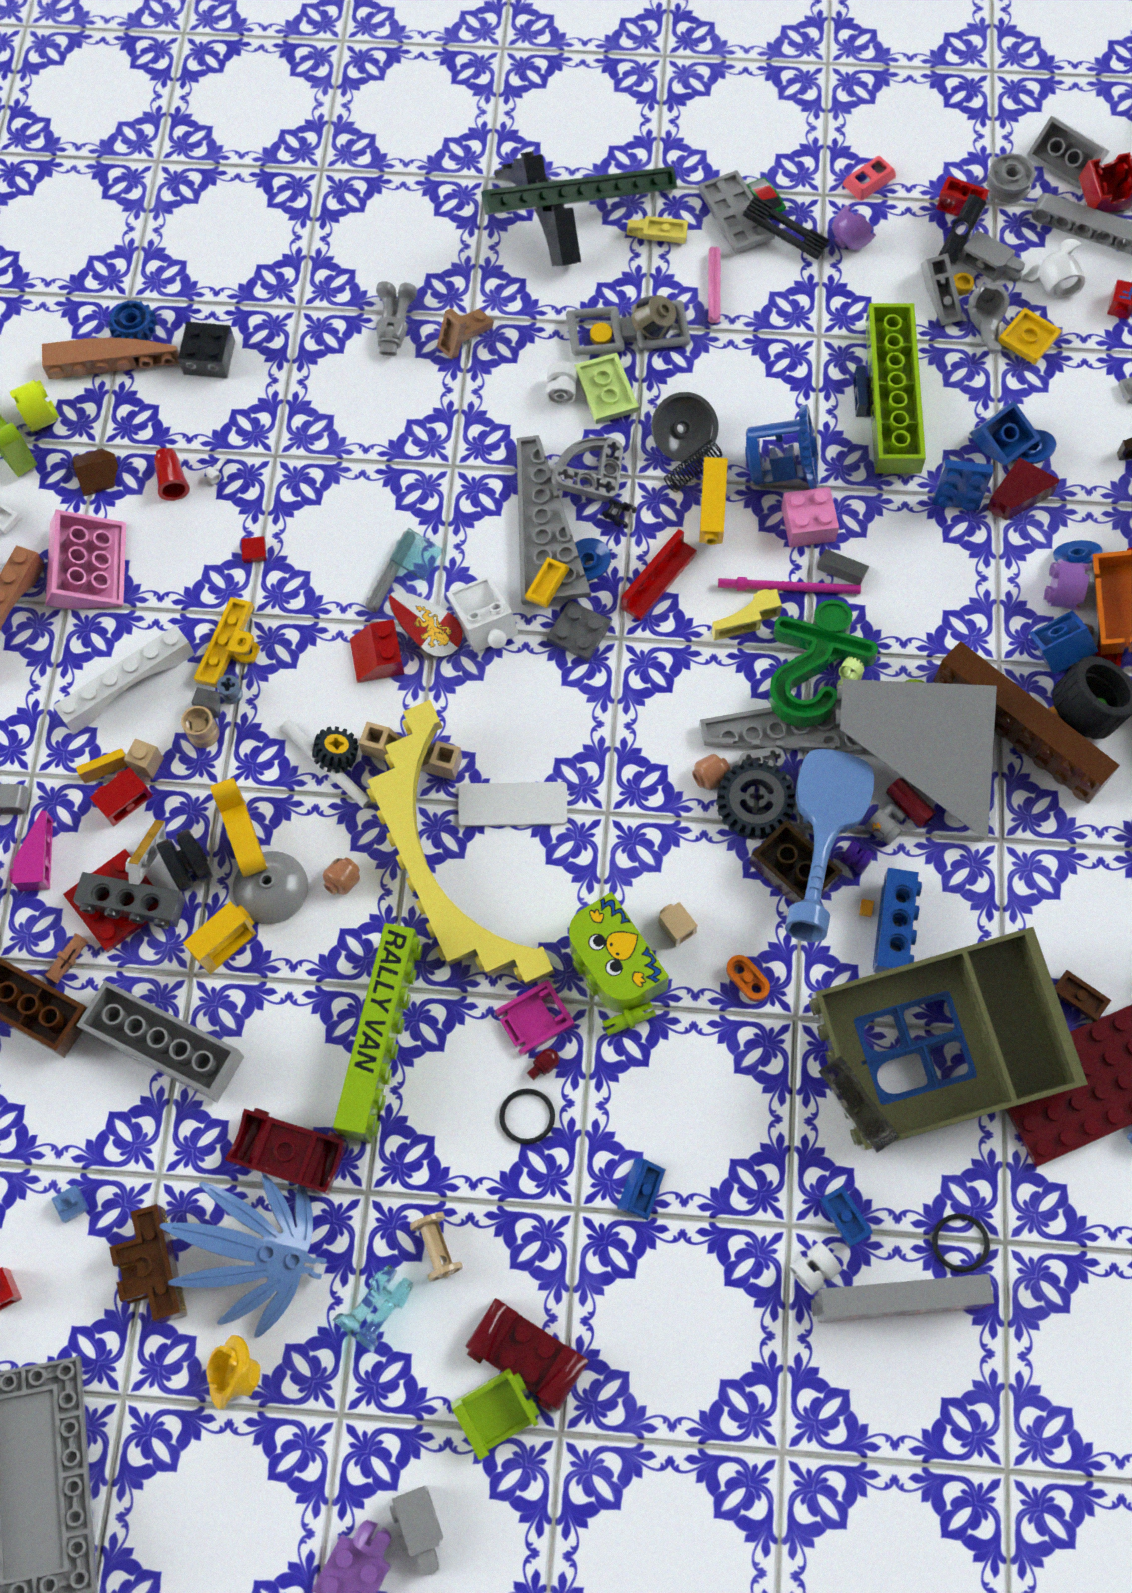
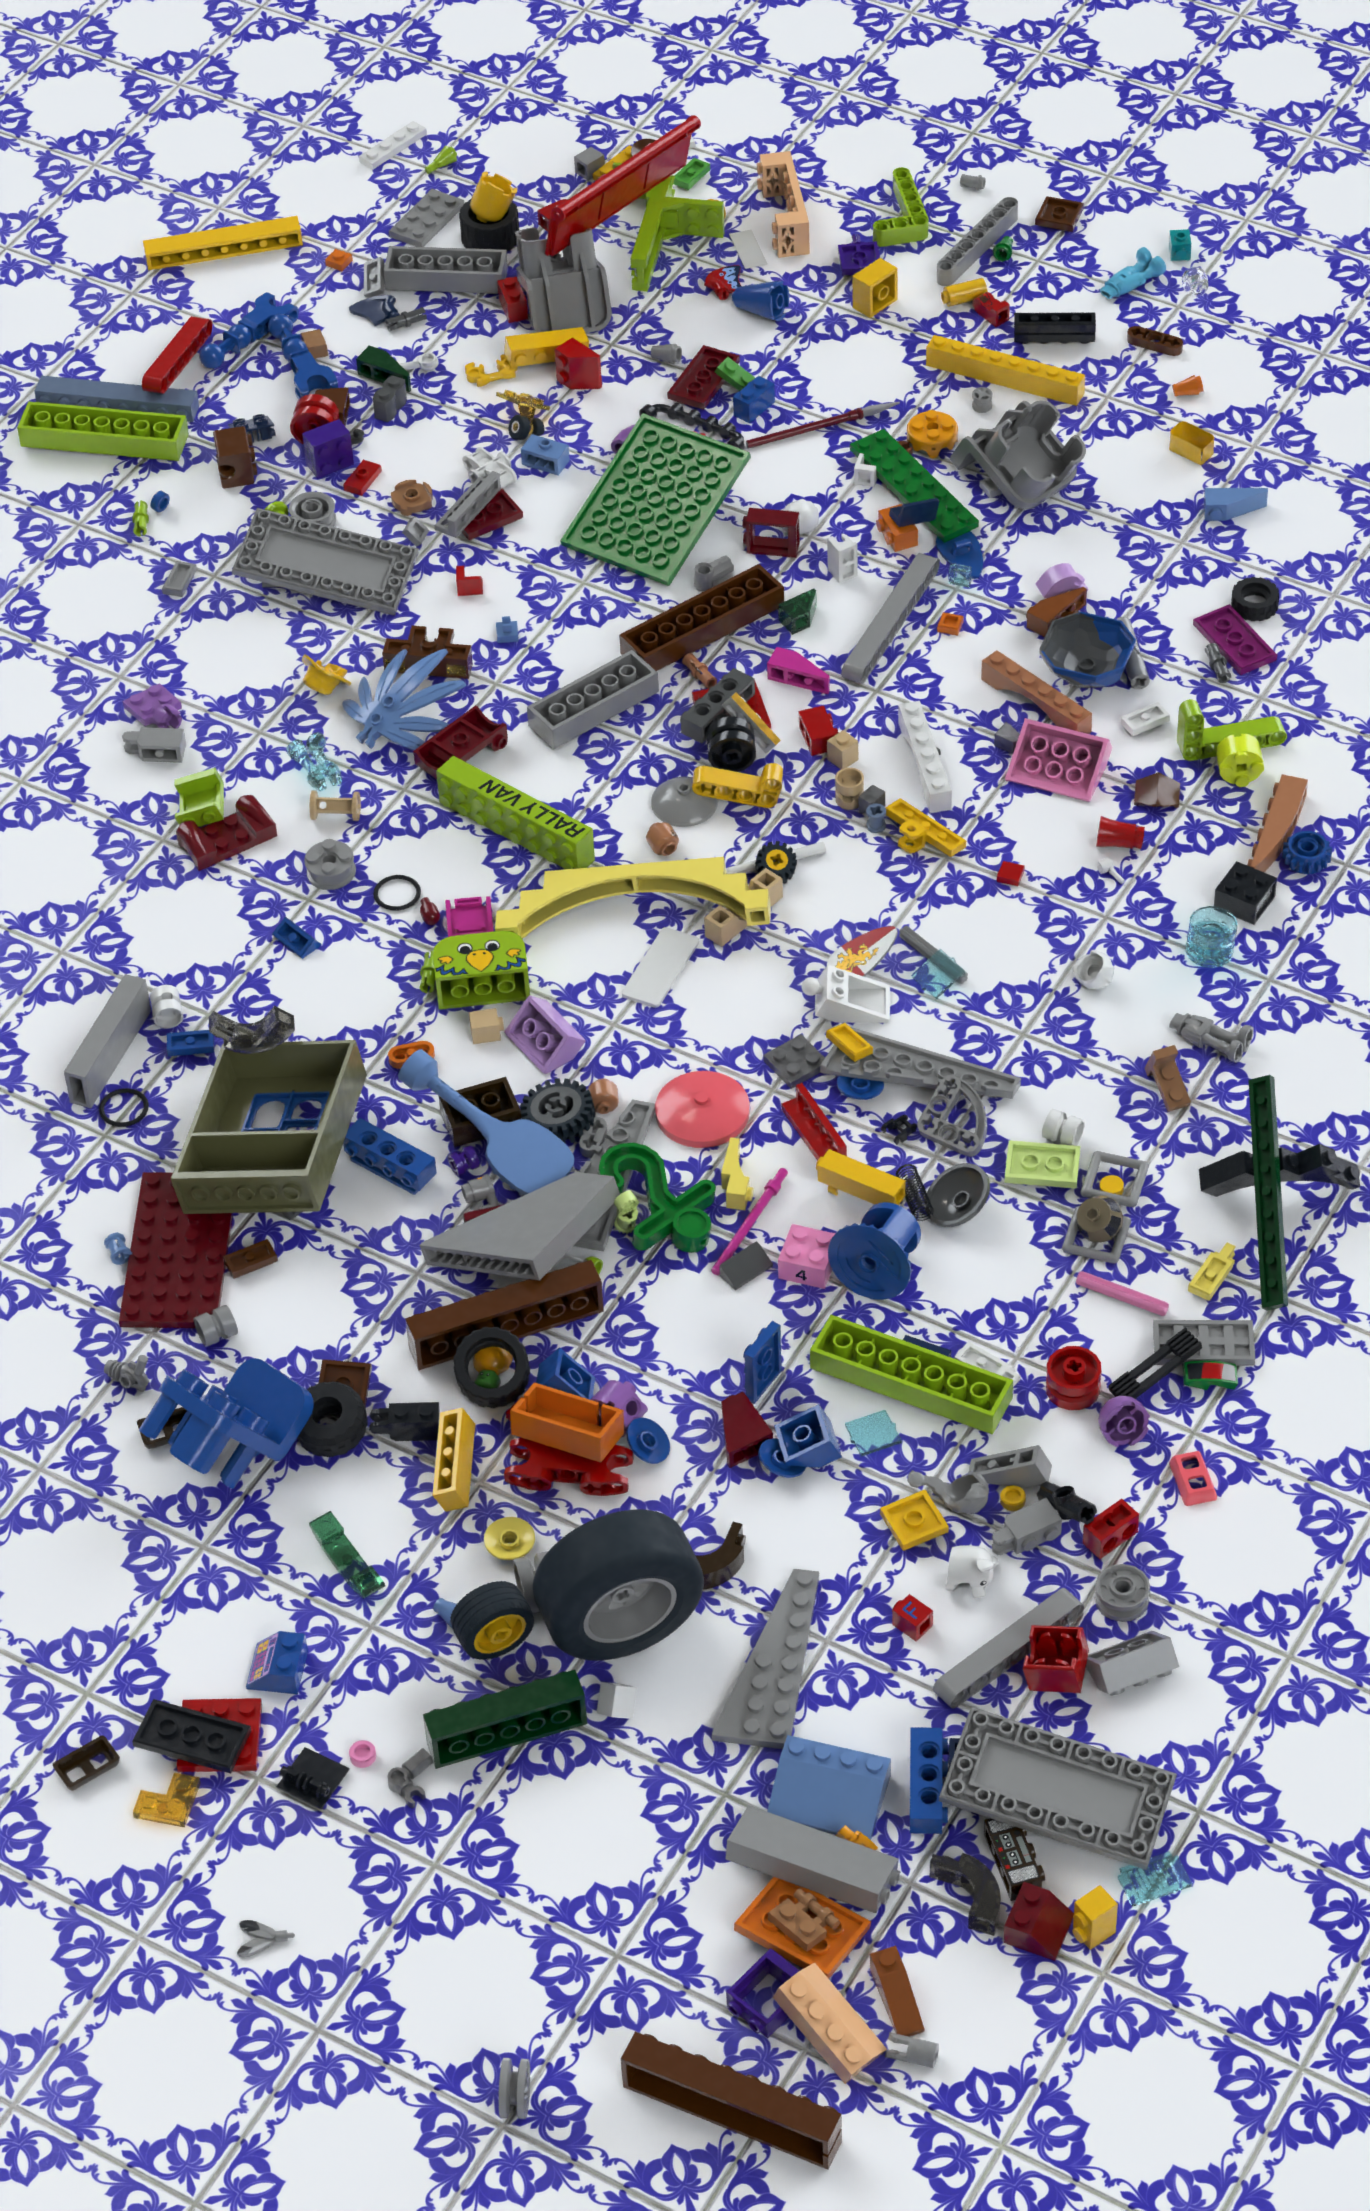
camera: 115 degrees right, 20 degrees down
(66, 620) = (1006, 738): none -> flat silver slope
(102, 766) = (852, 720): yellow tile -> none
(220, 937) = (652, 748): yellow window -> none
(280, 349) = (1211, 936): none -> clear light blue wheel
(357, 431) = (1094, 970): none -> white hair
(376, 652) = (850, 921): red slope -> none
(520, 1187) = (330, 865): none -> light grey wheel
(661, 861) = (544, 1035): none -> lavender slope
(677, 683) = (702, 1109): none -> coral dish
(829, 277) = (1073, 1378): none -> red wheel
(847, 346) = (980, 1358): none -> white hinge
(957, 403) = (873, 1433): none -> clear light blue piece

